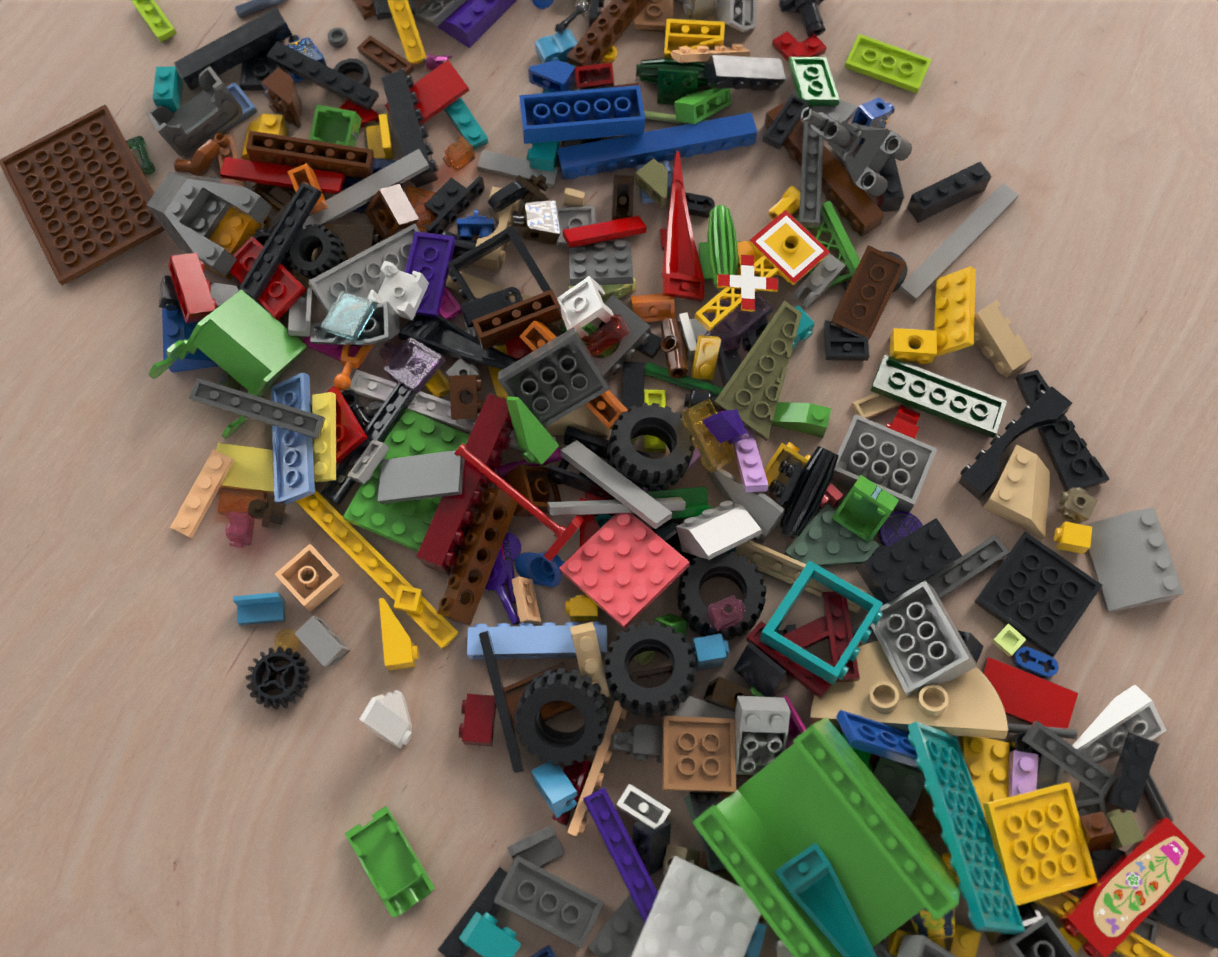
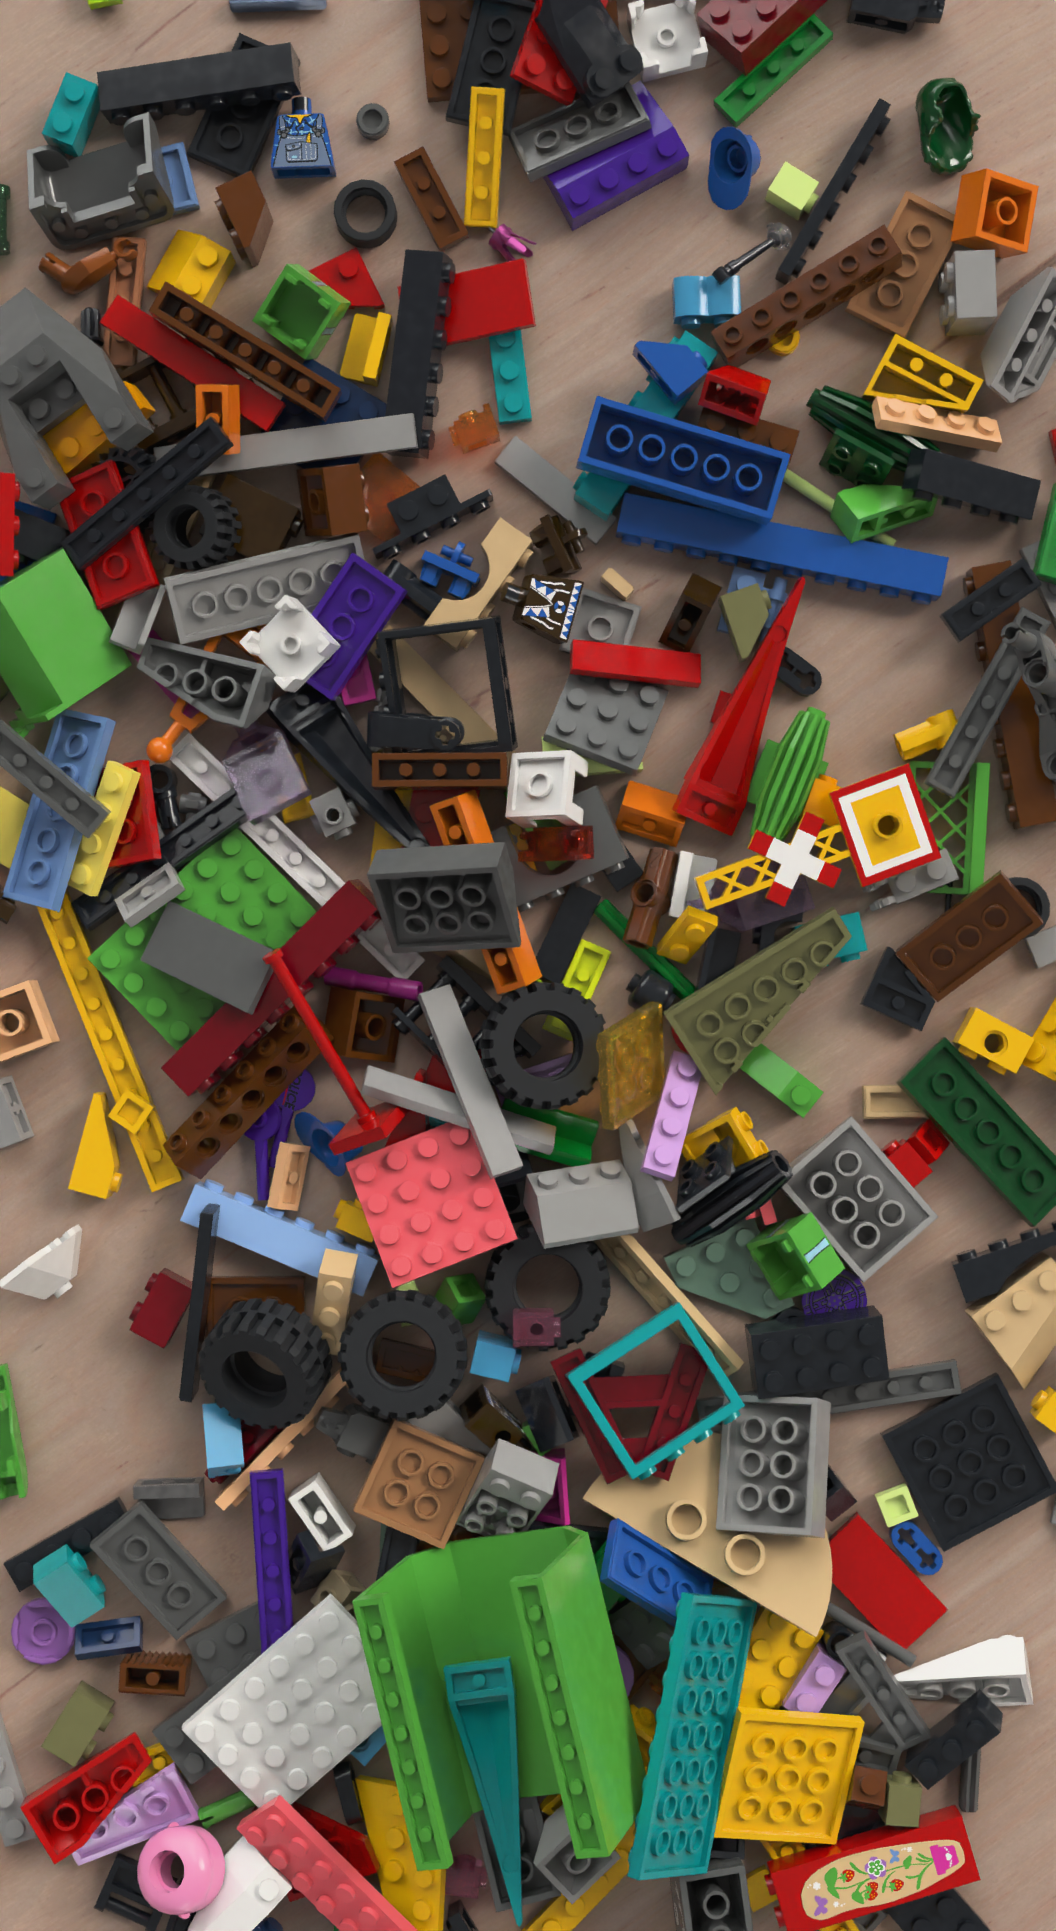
camera: 25 degrees right, 20 degrees up
(323, 76) = (318, 201): black plate -> none
(348, 315) = (202, 659): clear light blue tile -> none
(458, 385) = (311, 871): reddish brown brick -> none
(506, 196) = (512, 550): black beam -> none
(529, 432) = (382, 962): bright green slope -> none
(726, 426) = (661, 1060): dark purple slope -> none

